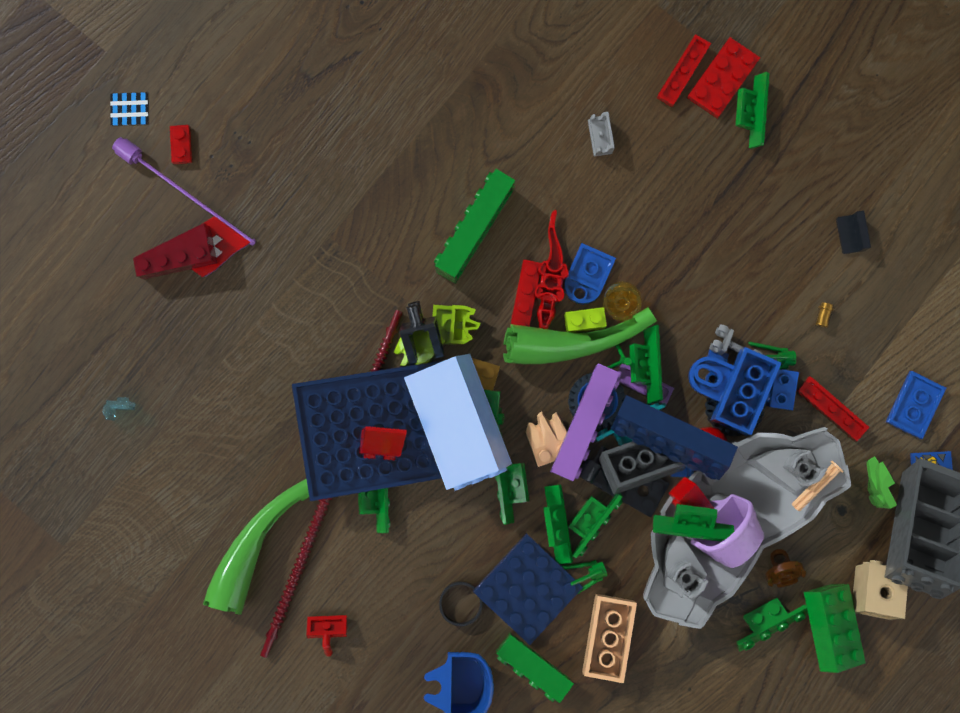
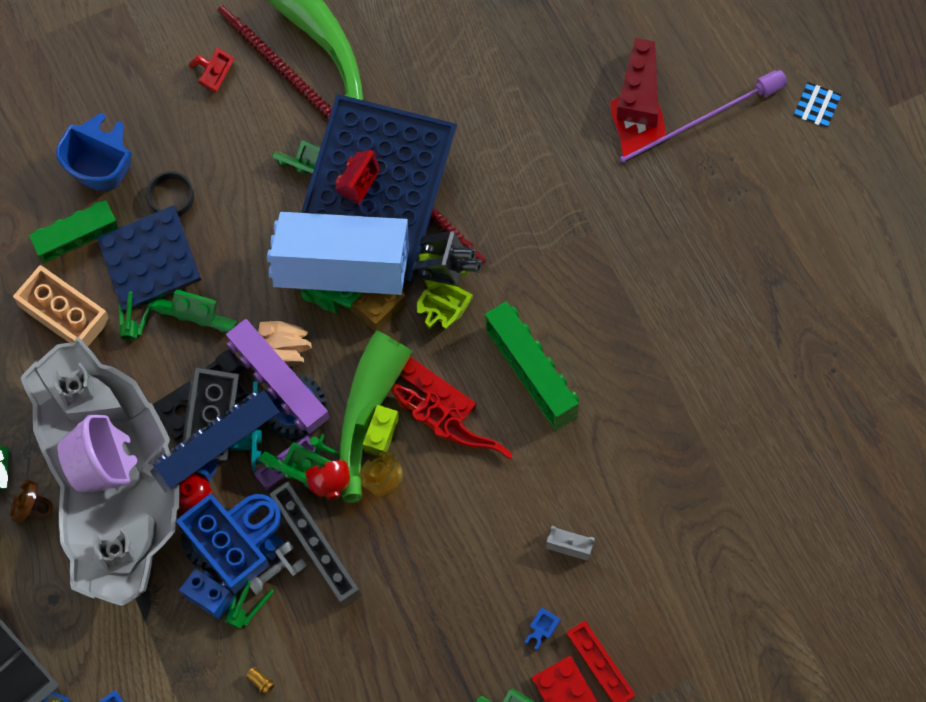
camera: 120 degrees right, 15 degrees down
(180, 144) = (756, 135): red plate -> none
(511, 490) = (255, 286): green bracket -> none
(588, 273) = (429, 462): blue tile -> none
(590, 519) = (183, 345): green bracket -> none
(653, 334) = (329, 480): none -> red cylinder
(675, 125) = (544, 625): none -> blue plate
(689, 494) = (145, 437): red brick -> none
(693, 523) = (121, 419): green bracket -> none
(702, 324) = (316, 544): none -> dark grey brick
(815, 488) = (90, 557): light nougat axle -> none
(832, 409) = (159, 638): red plate -> none
(878, 483) = (61, 641): bright green plate -> none

